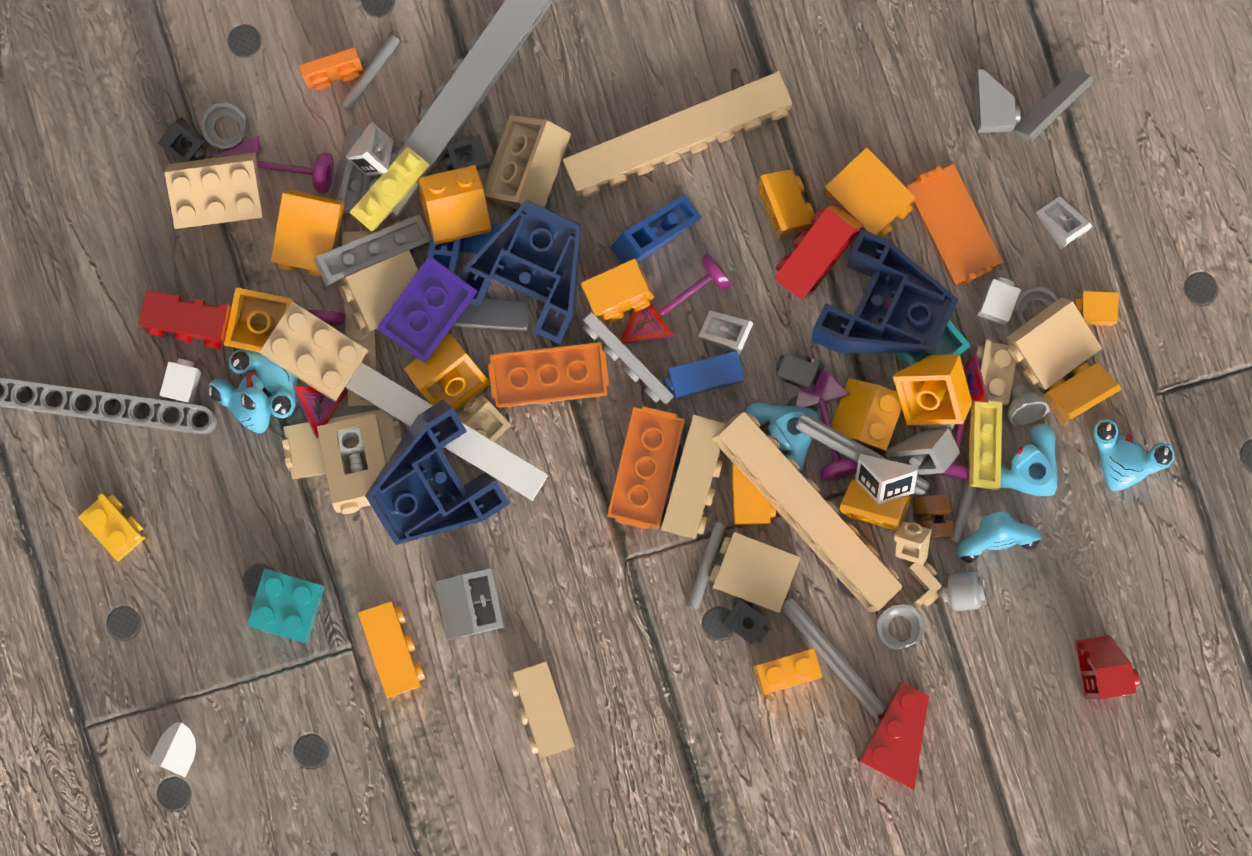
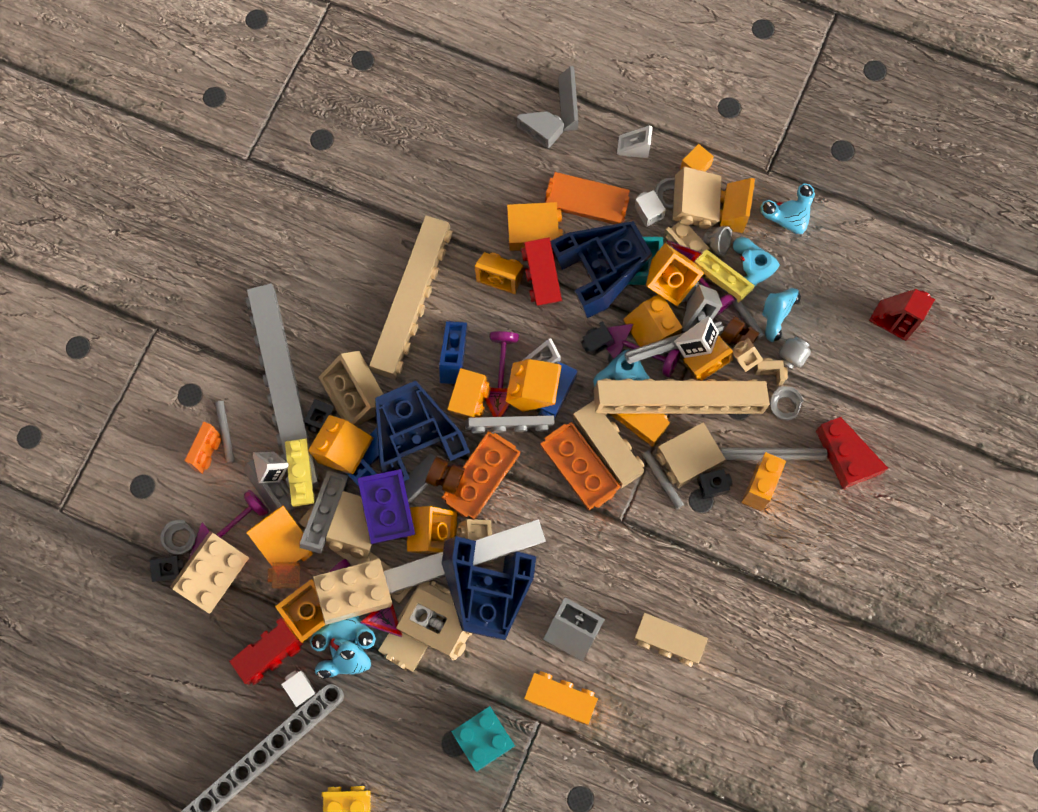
camera: 45 degrees left, 10 degrees down
(274, 268) = (284, 575): none -> clear orange brick
(512, 339) = (444, 475): none -> reddish brown wheel
(687, 346) = (533, 384): none -> light orange slope

